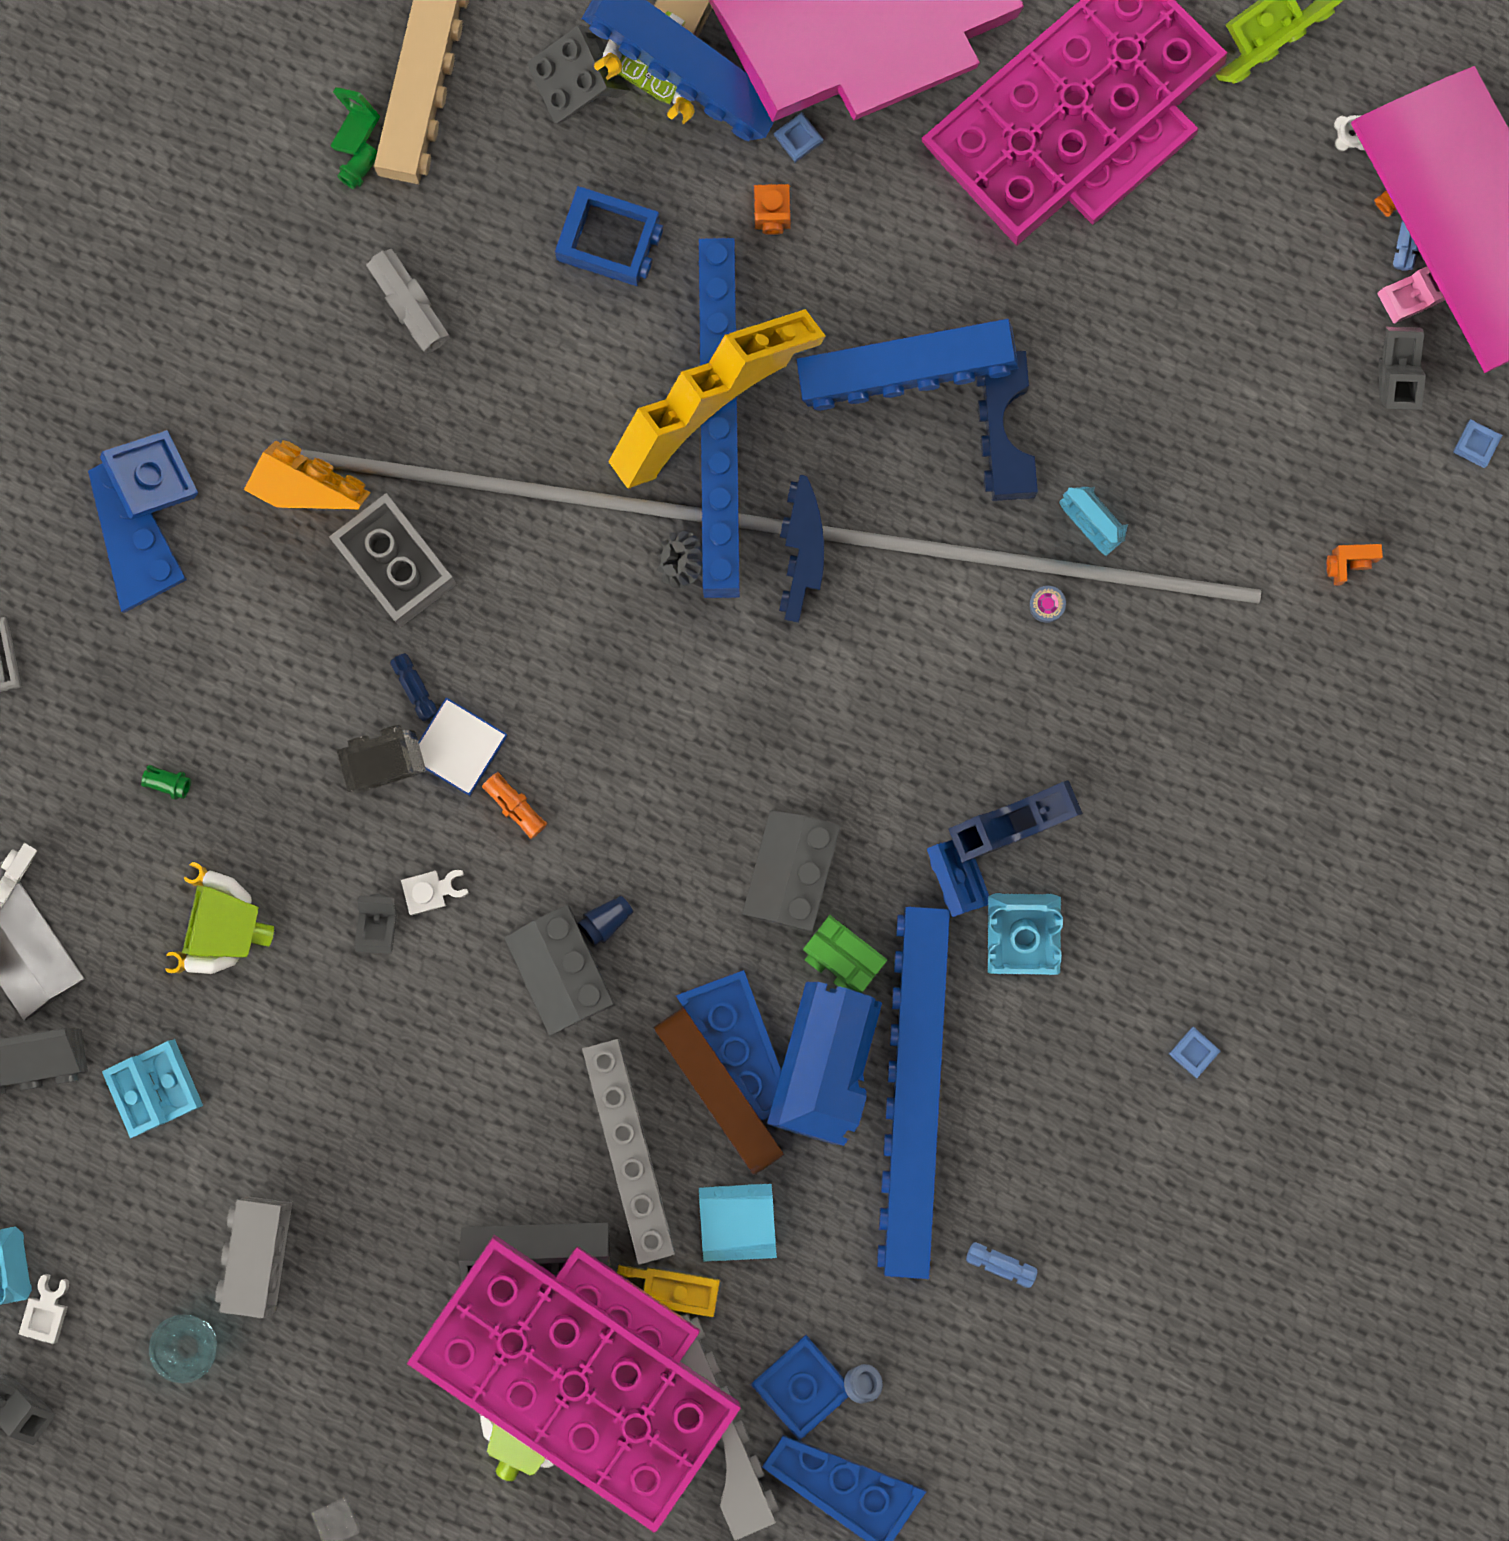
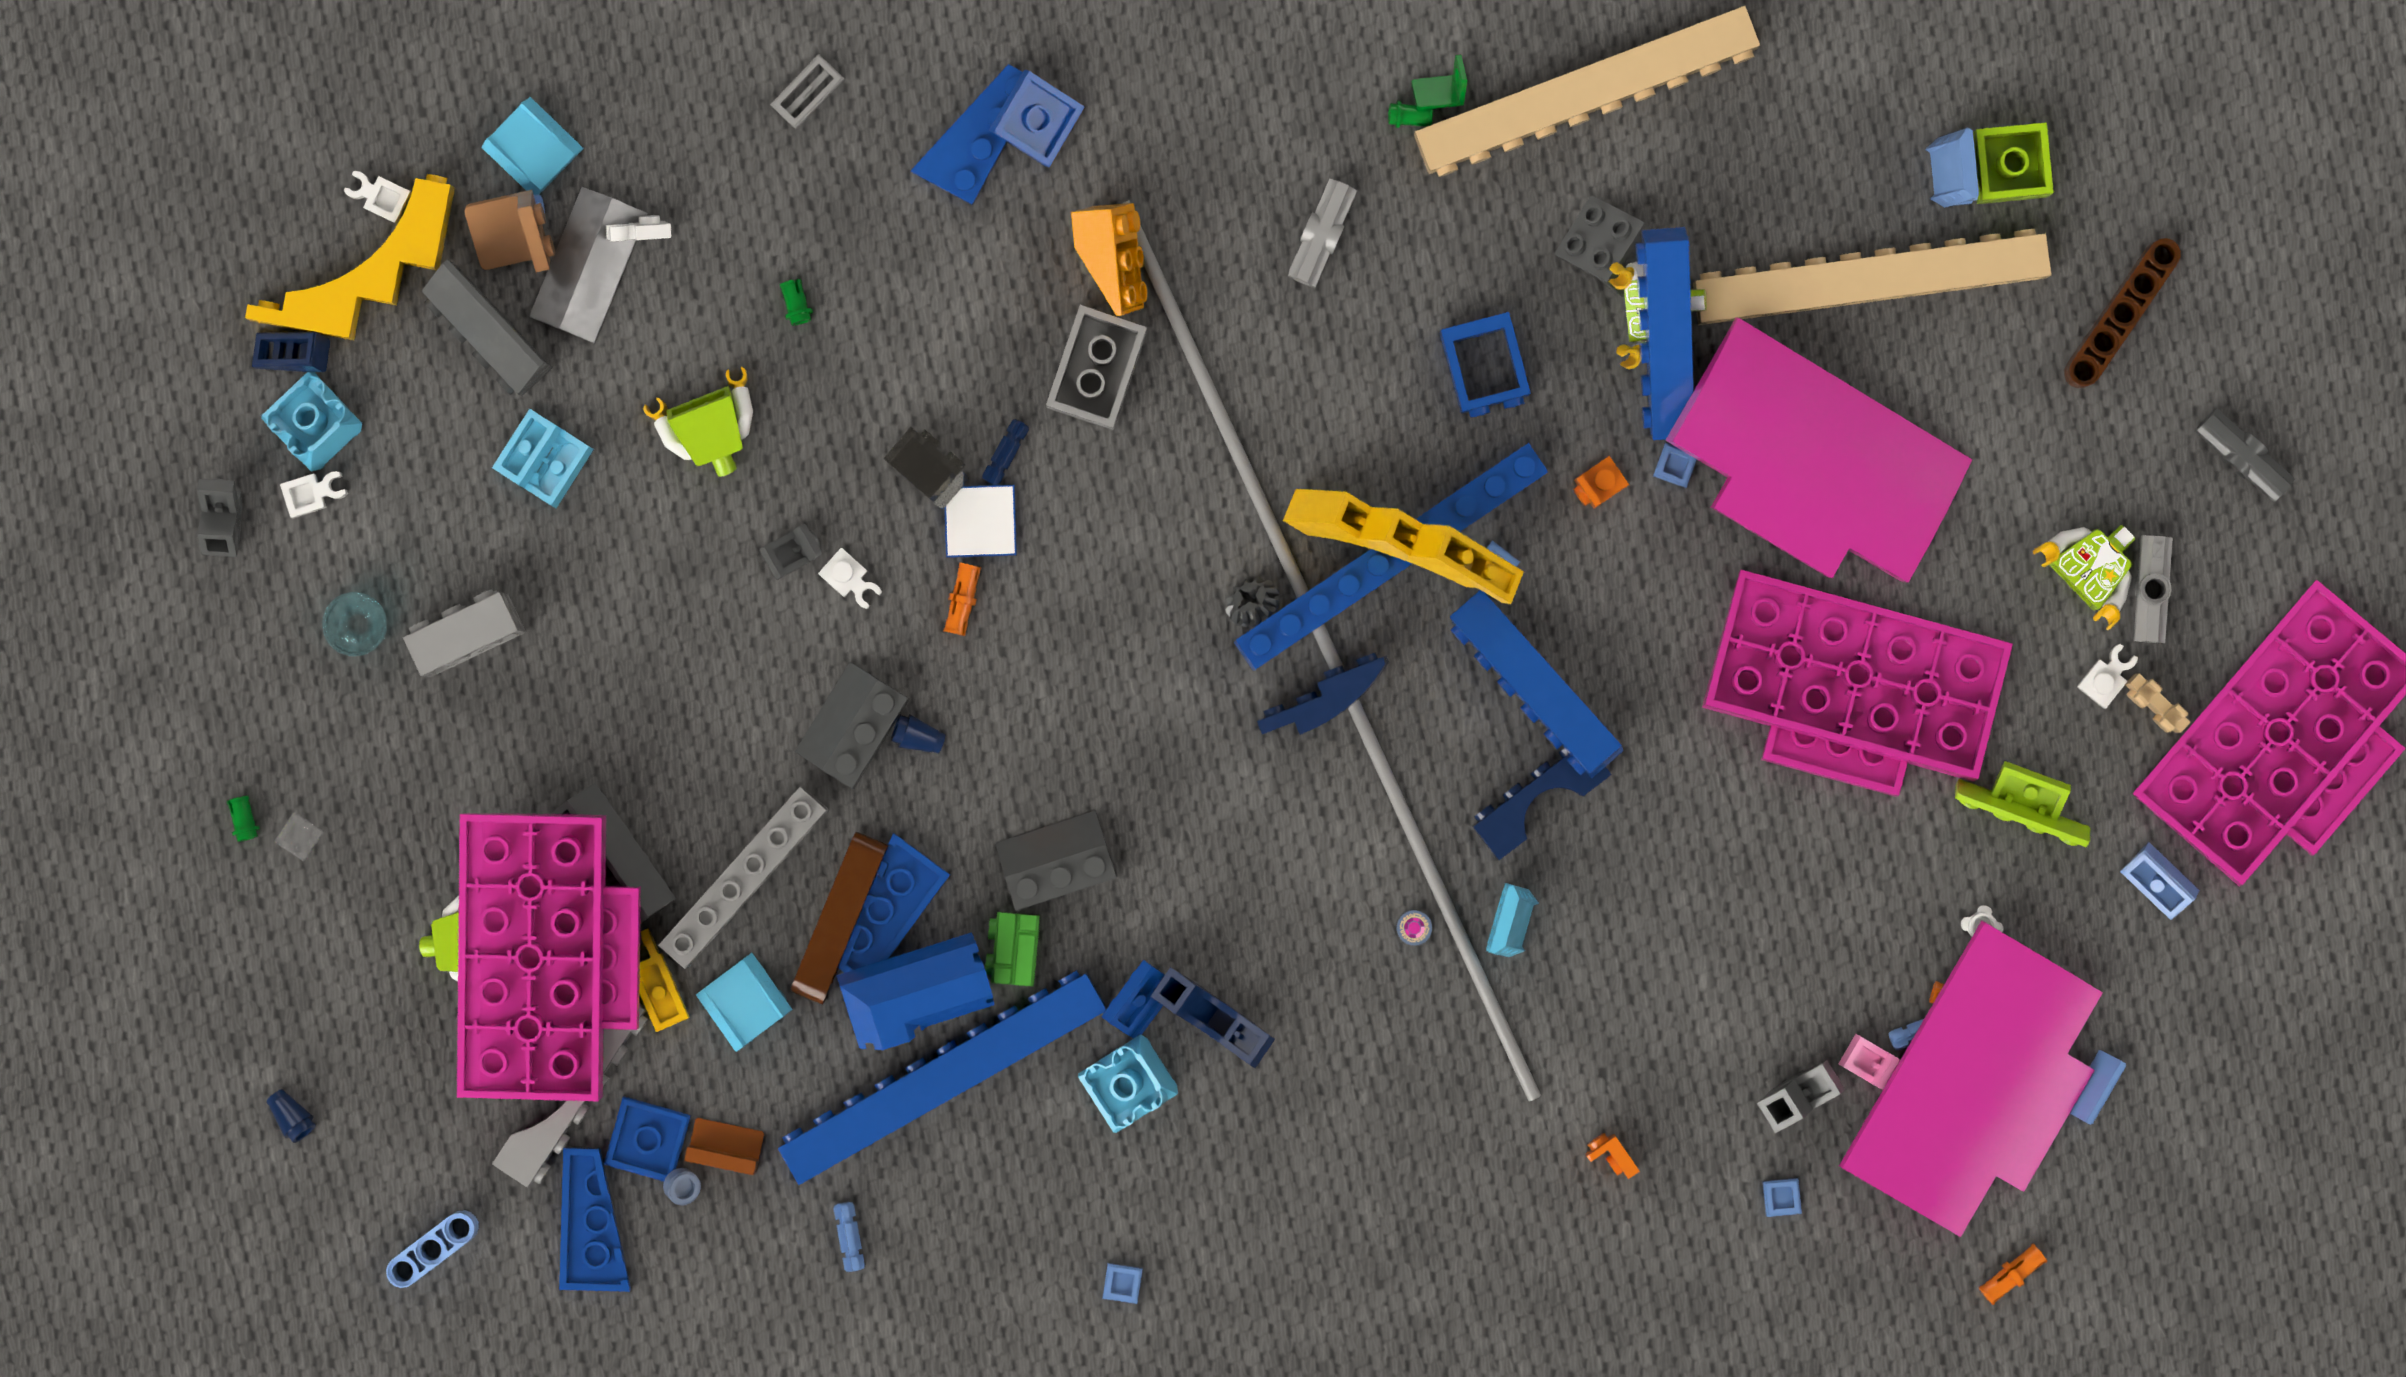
camera: 60 degrees right, 5 degrees up
(852, 1322) = (725, 1146): none -> dark orange panel

